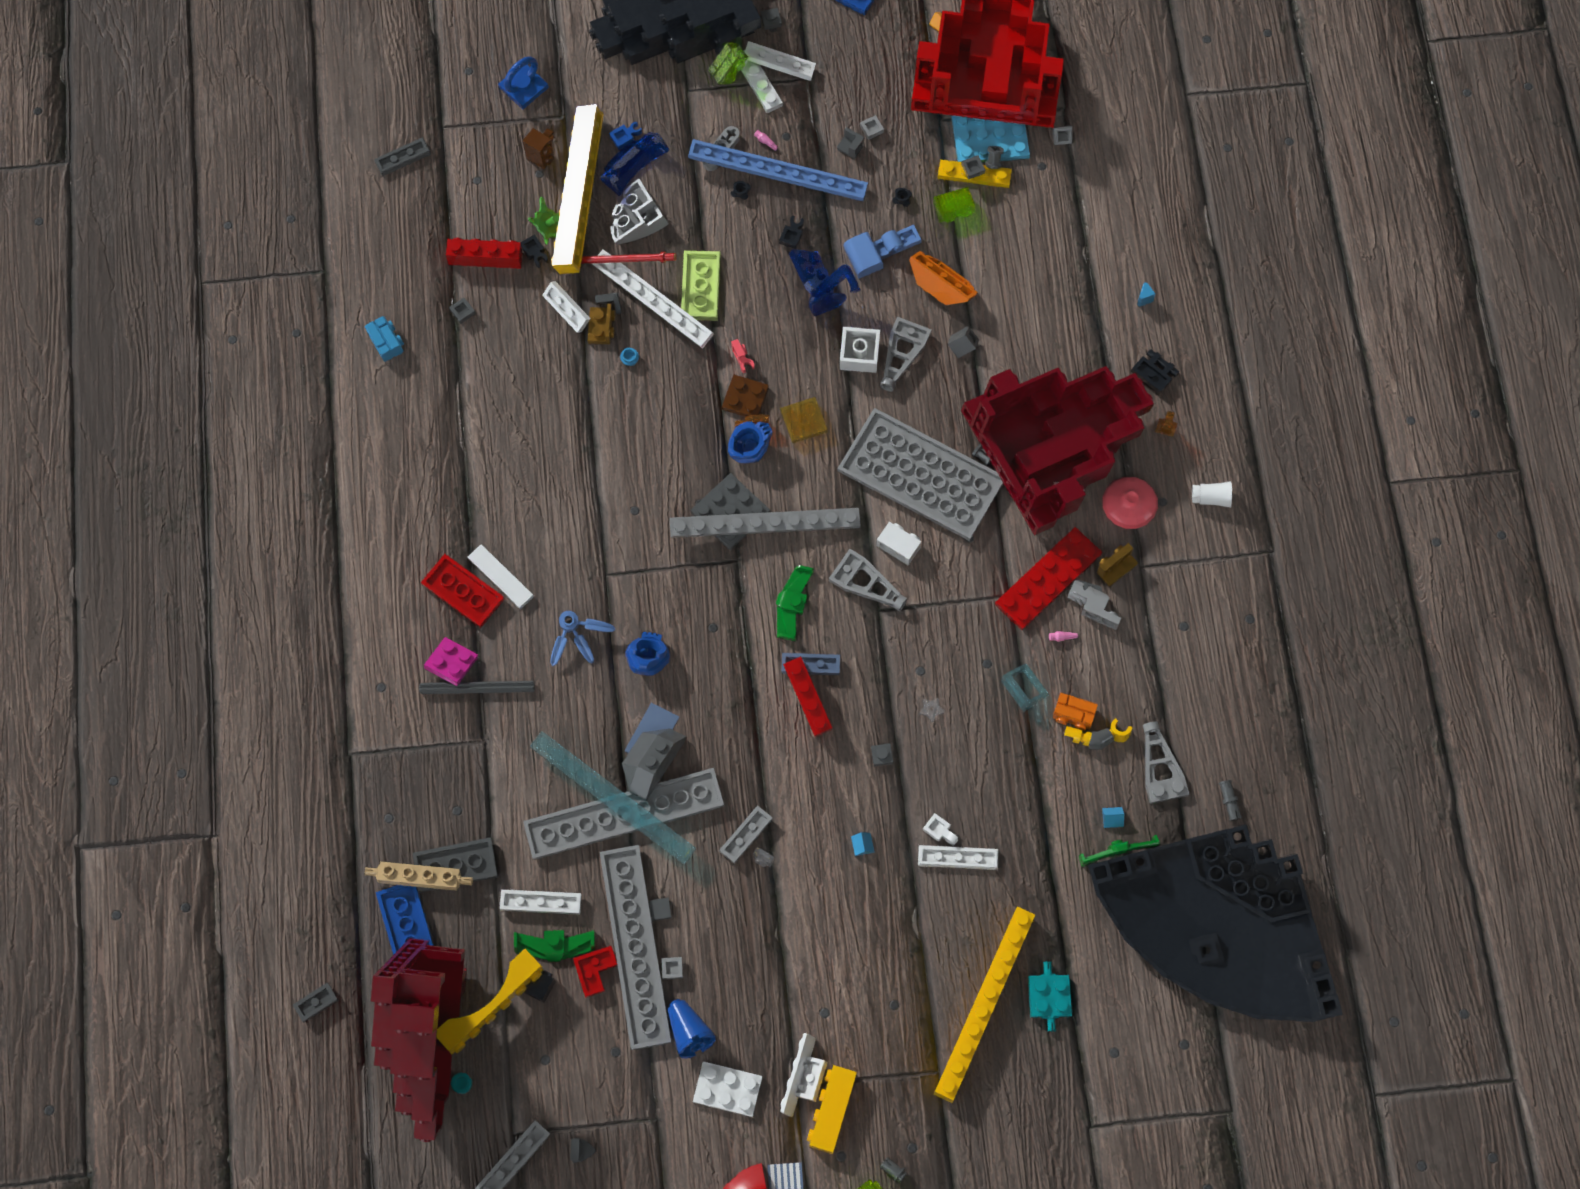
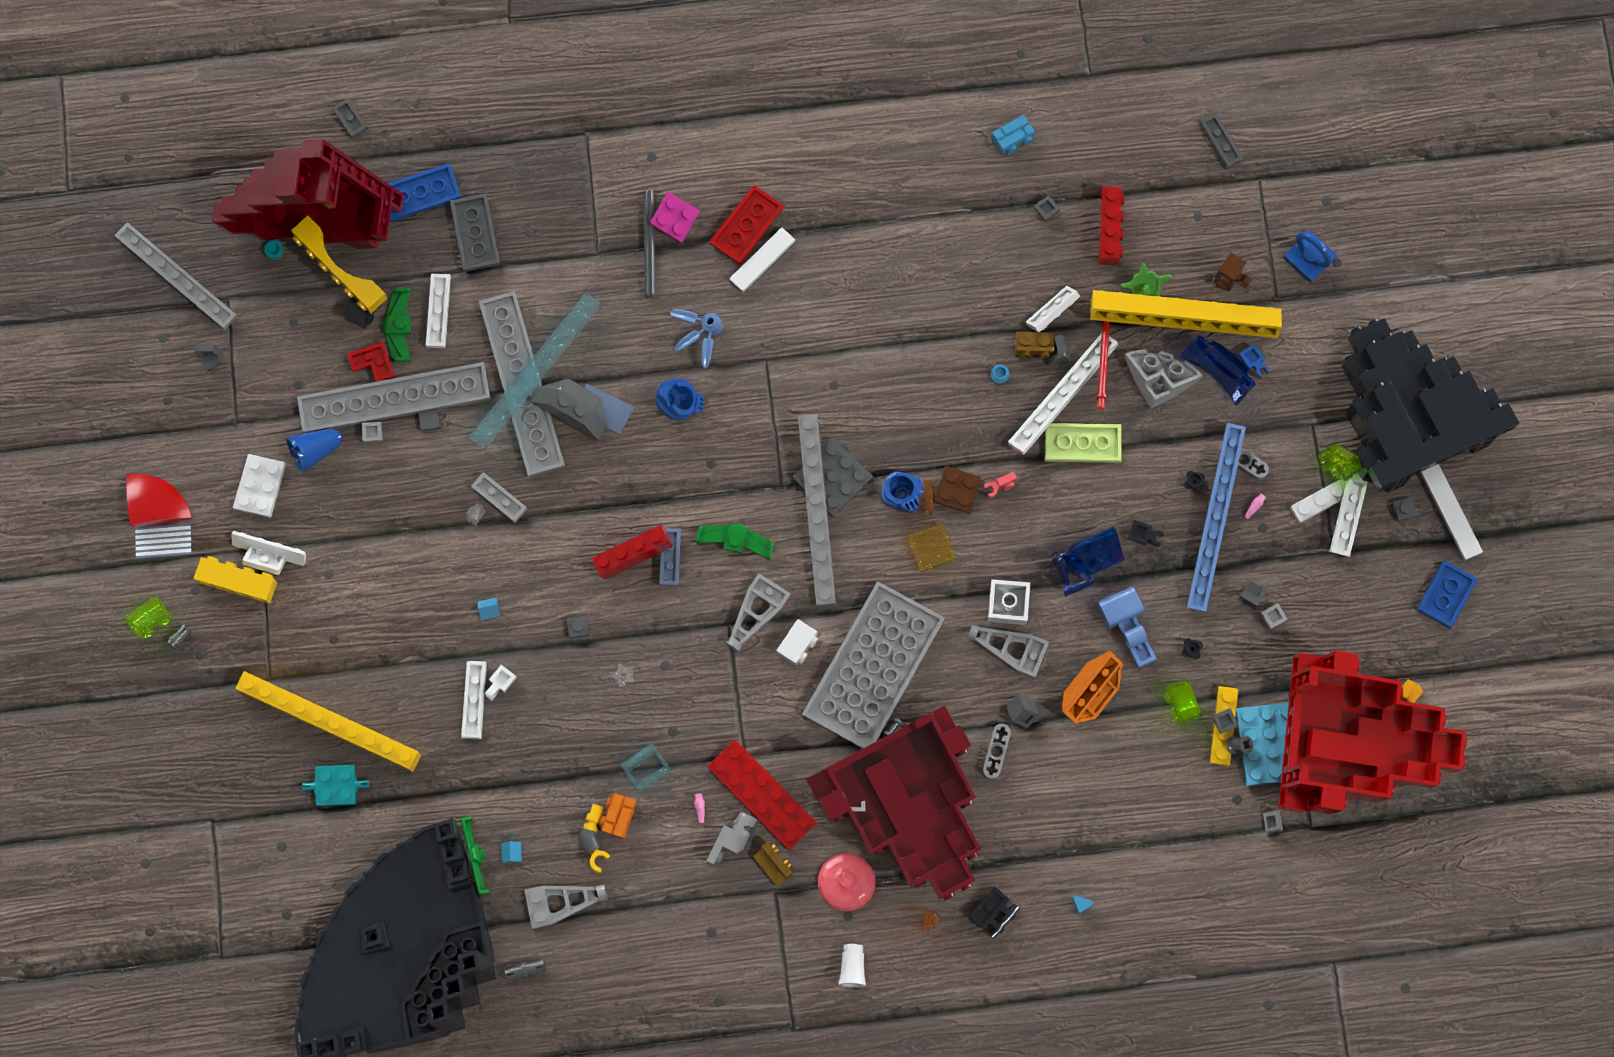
camera: 90 degrees right, 5 degrees up
(418, 876) = (462, 199): tan plate -> none
(534, 249) = (1117, 273): black plate -> none
(998, 359) = (995, 736): none -> light grey beam

